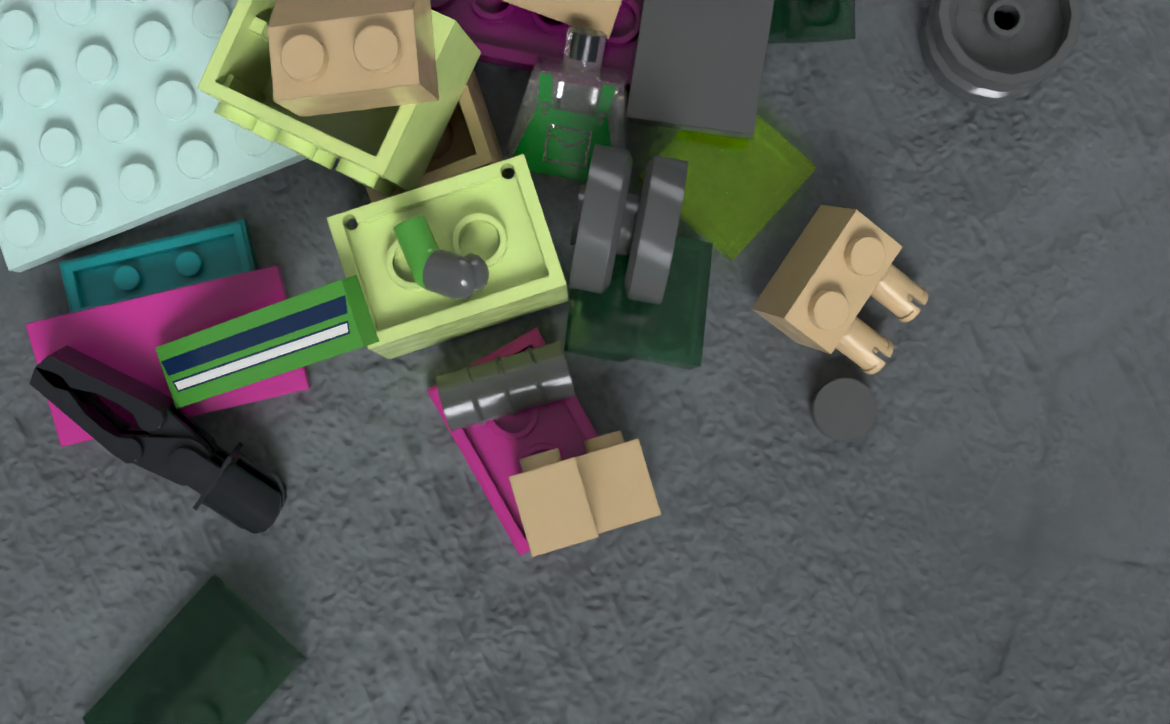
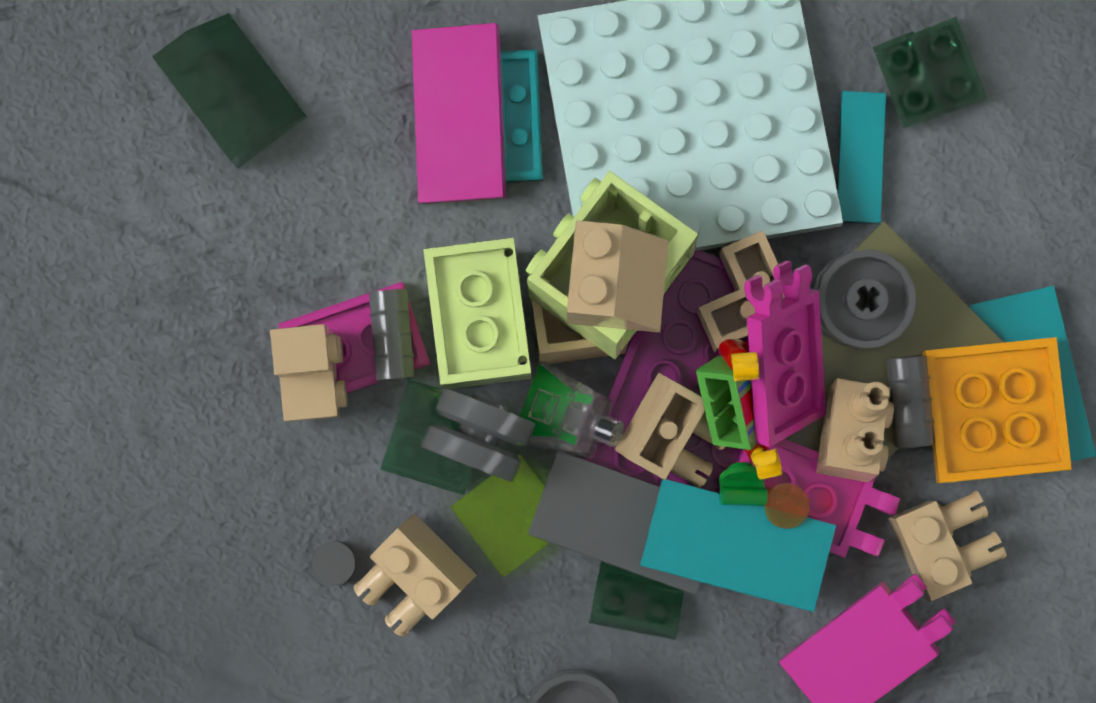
camera: 100 degrees right, 0 degrees up
(163, 440) = (400, 100): black arm -> none
(268, 342) = (444, 182): bright green tile -> none
(439, 269) = (463, 302): arm -> none

